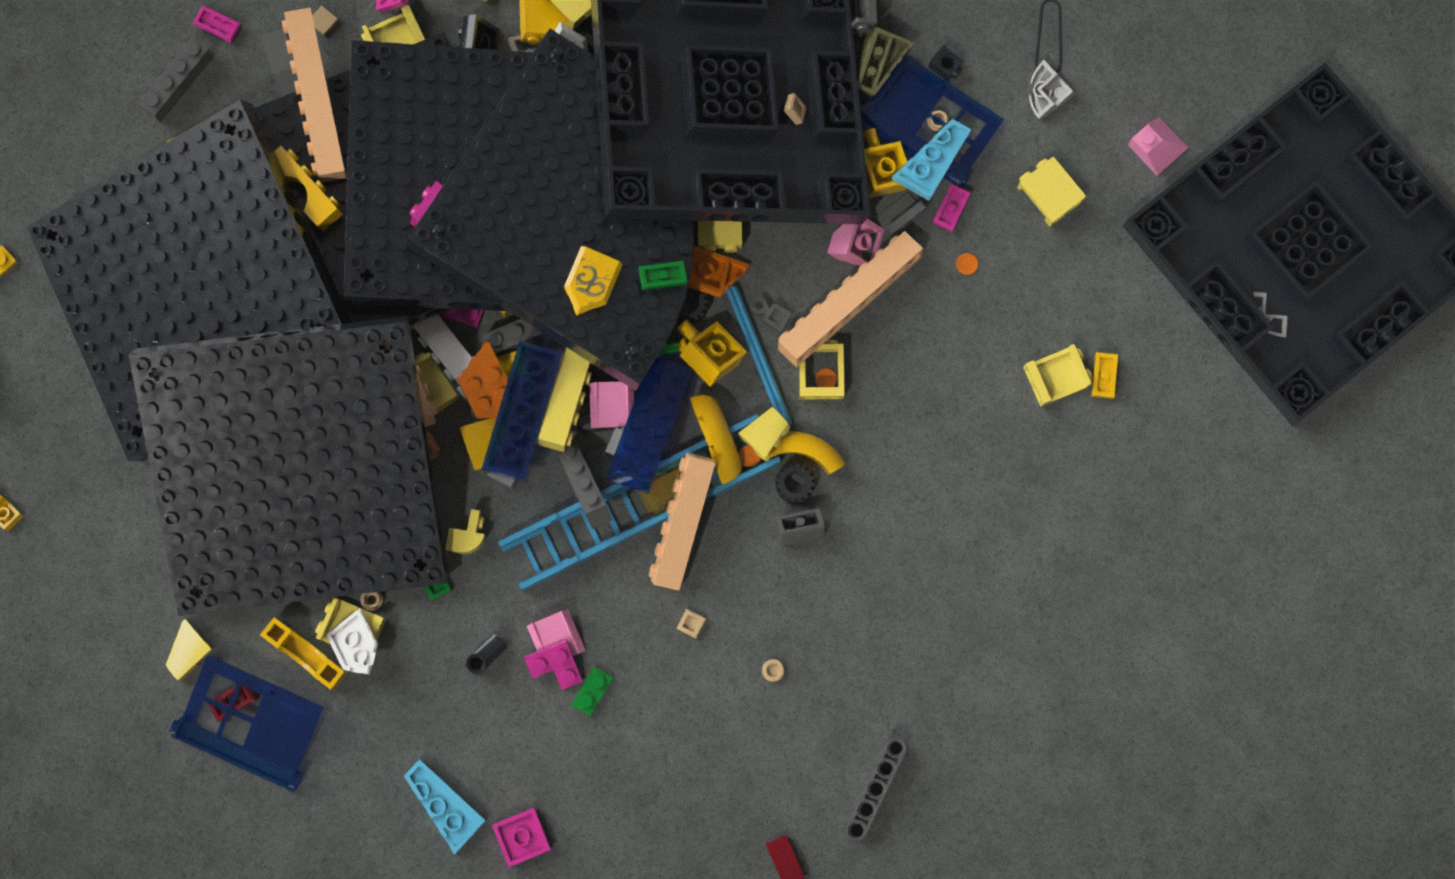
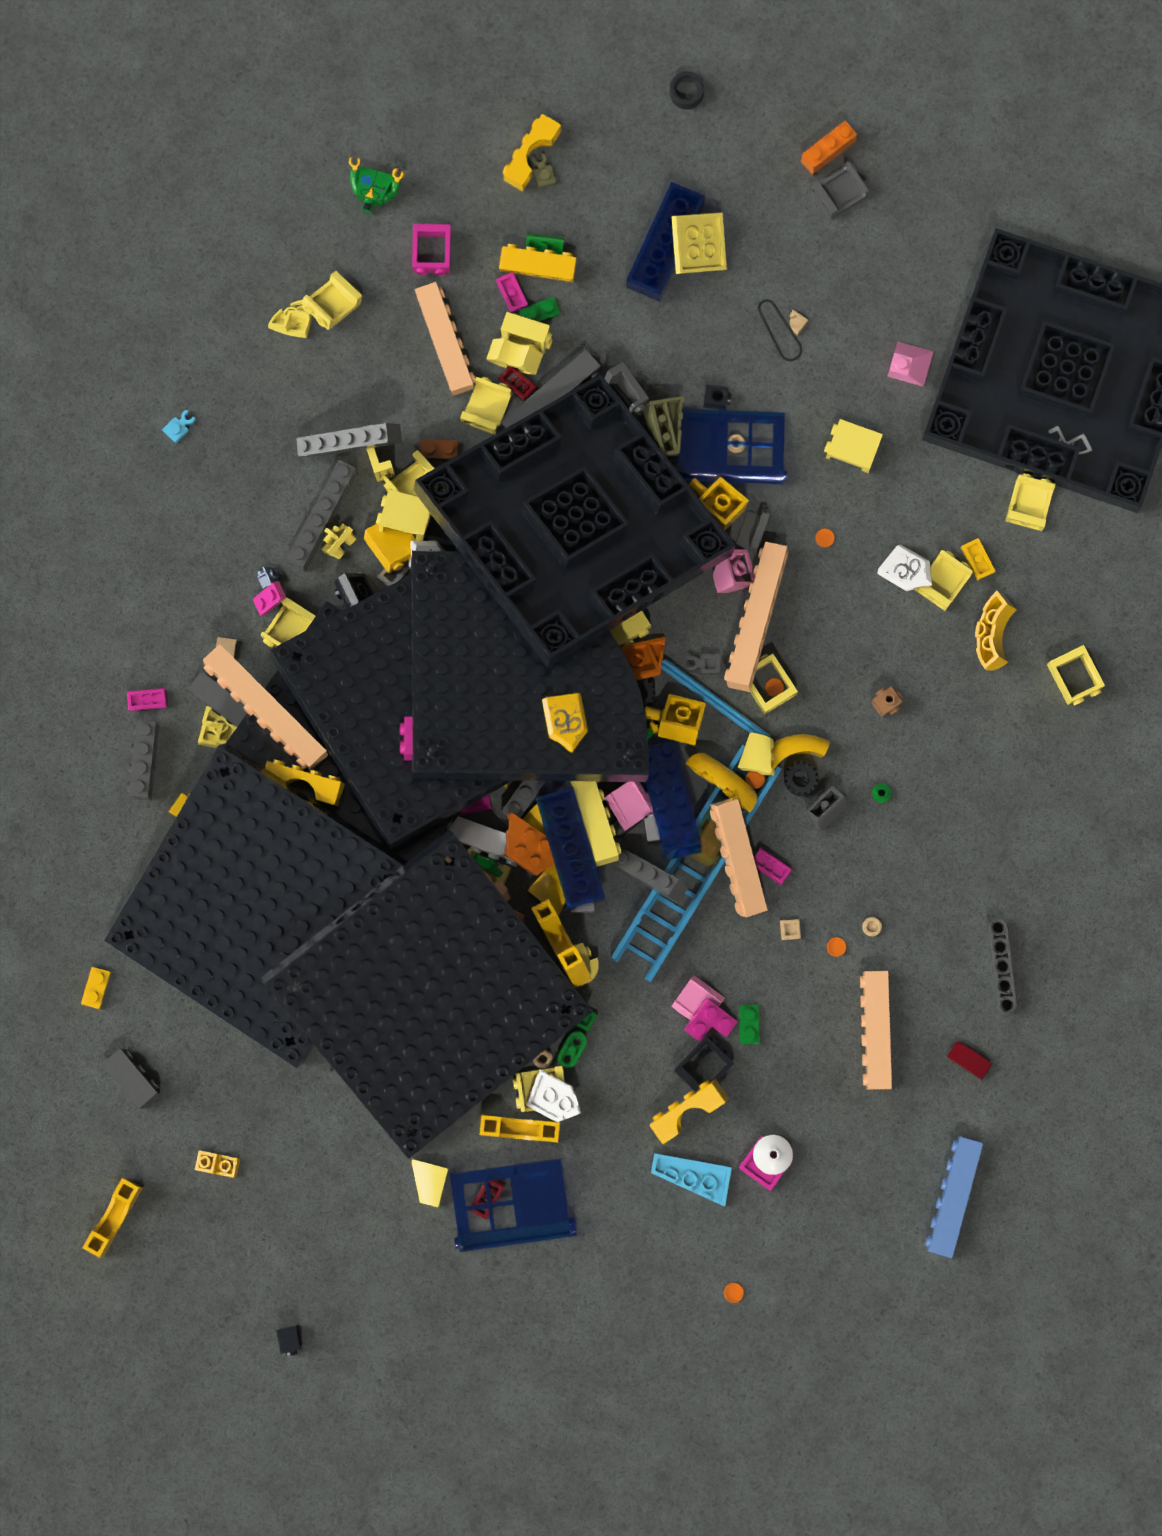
camera: 25 degrees left, 0 degrees up
(265, 84) = (217, 725): none -> light yellow slope
(405, 608) = (571, 1049): none -> green plate
(437, 381) = (489, 865): none -> green plate
(455, 516) = (561, 944): none -> yellow arch
(487, 653) = (654, 1045): black piece -> none
(498, 708) = (713, 1045): none -> black window
(501, 737) = (708, 1097): none -> yellow arch
(545, 833) = (762, 1154): none -> white dish
(662, 275) = (614, 684): green plate -> none
(711, 550) = (771, 866): none -> dark pink plate
(712, 775) = (877, 1030): none -> light nougat brick
(725, 668) = (836, 947): none -> orange piece
(795, 108) = (629, 500): tan tile -> none
(858, 549) = (881, 799): none -> green plate
(919, 463) = (884, 707): none -> medium nougat brick
(930, 164) = (754, 478): medium azure wing -> none
(951, 208) = (787, 503): dark pink plate -> none
(1027, 341) = (906, 569): none -> white tile
(1045, 82) = (804, 371): light grey brick -> none
(1072, 39) = (797, 322): none -> tan tile
(1073, 453) = (990, 631): none -> yellow brick
(1134, 526) = (1090, 667): none -> light yellow window
(1192, 351) = (1030, 502): none -> light yellow panel

